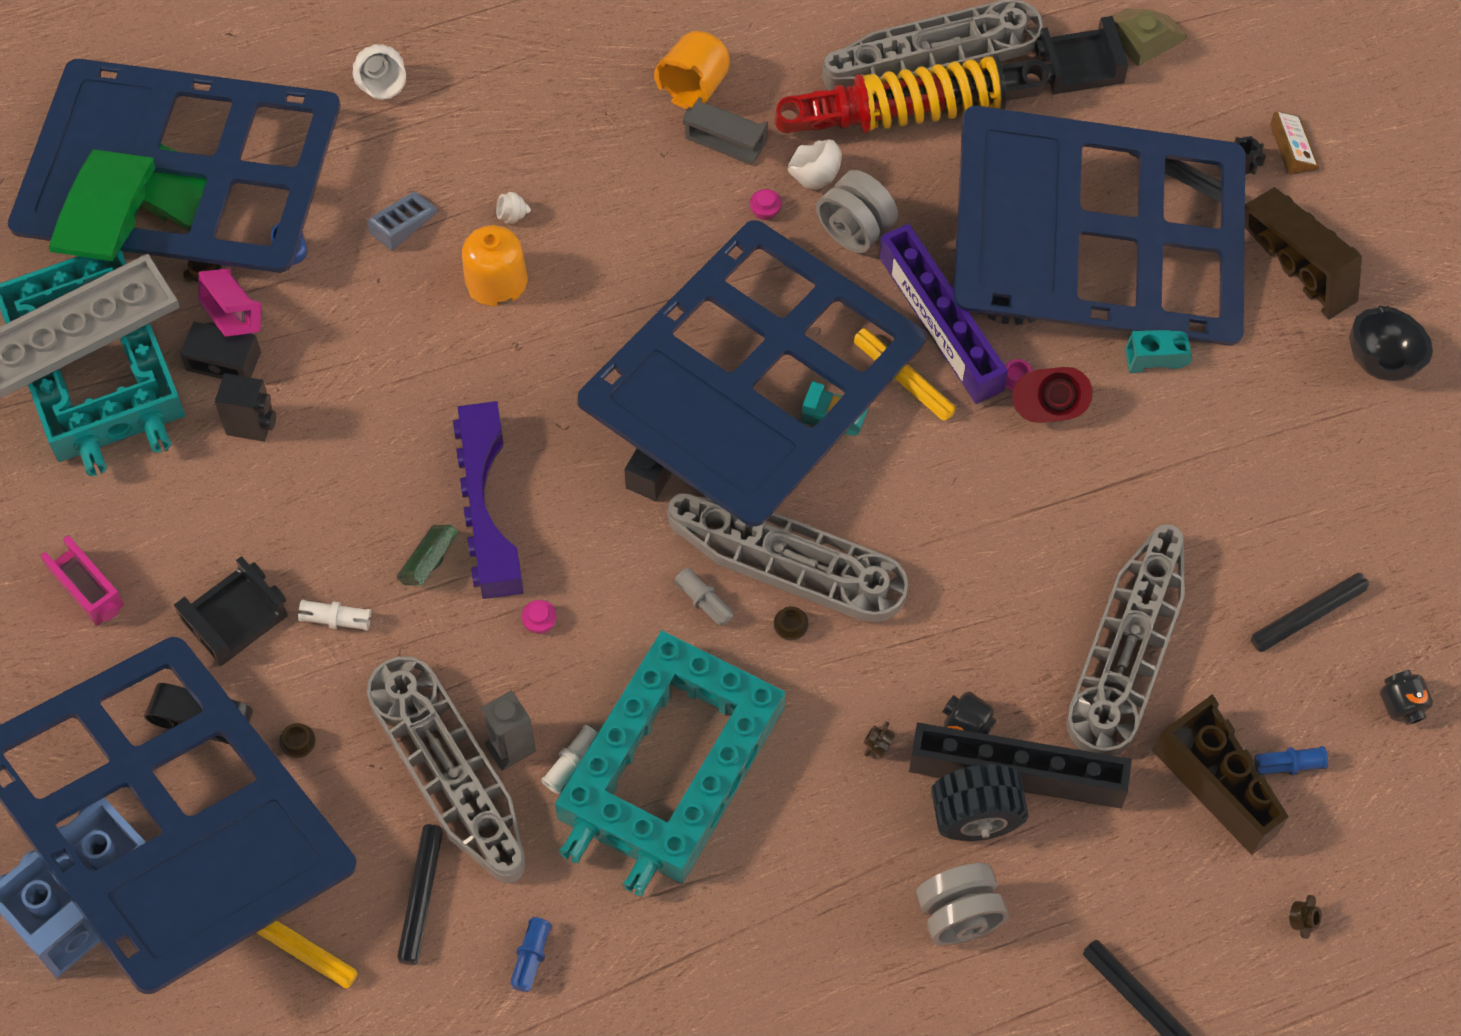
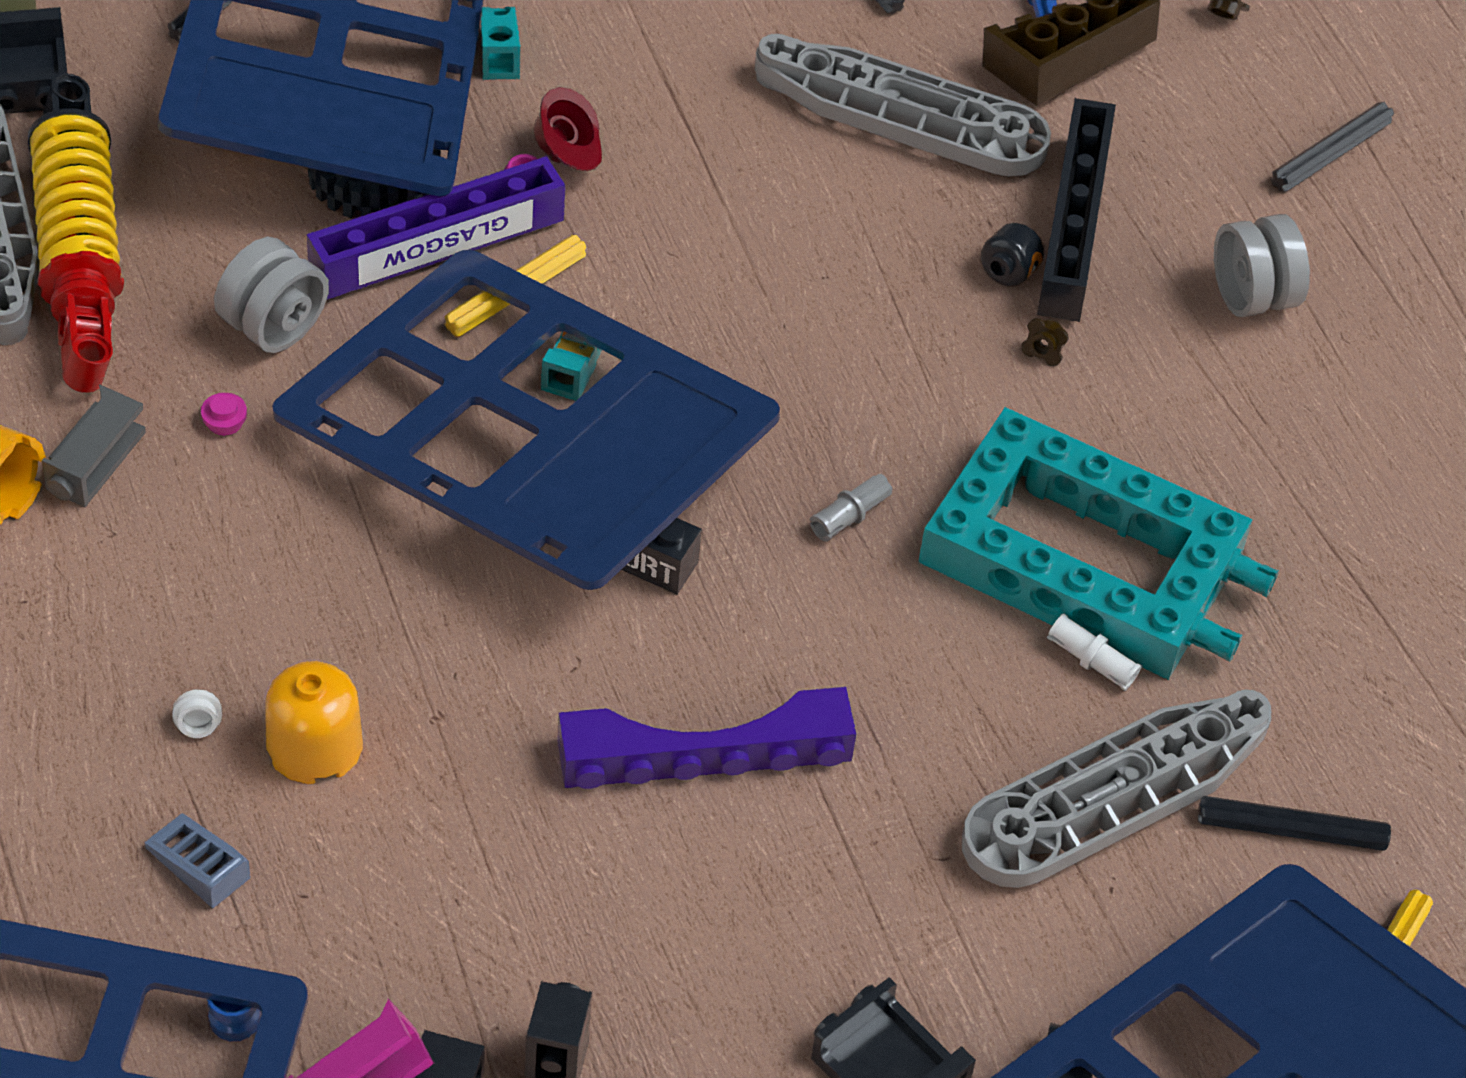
camera: 95 degrees left, 10 degrees down
(297, 740) = (1087, 972): dark brown plate -> none
(334, 615) = (892, 928): white pin -> none
(427, 555) = (796, 812): plate -> none
(508, 730) = (1077, 695): dark grey window -> none
(530, 954) = (1363, 699): blue axle -> none
(539, 616) = (885, 688): dark pink plate -> none
(791, 623) = (886, 419): dark brown plate -> none
(793, 557) = (821, 356): light grey beam -> none
(816, 164) = (171, 342): white hair -> none
(979, 802) = (1138, 236): black wheel -> none

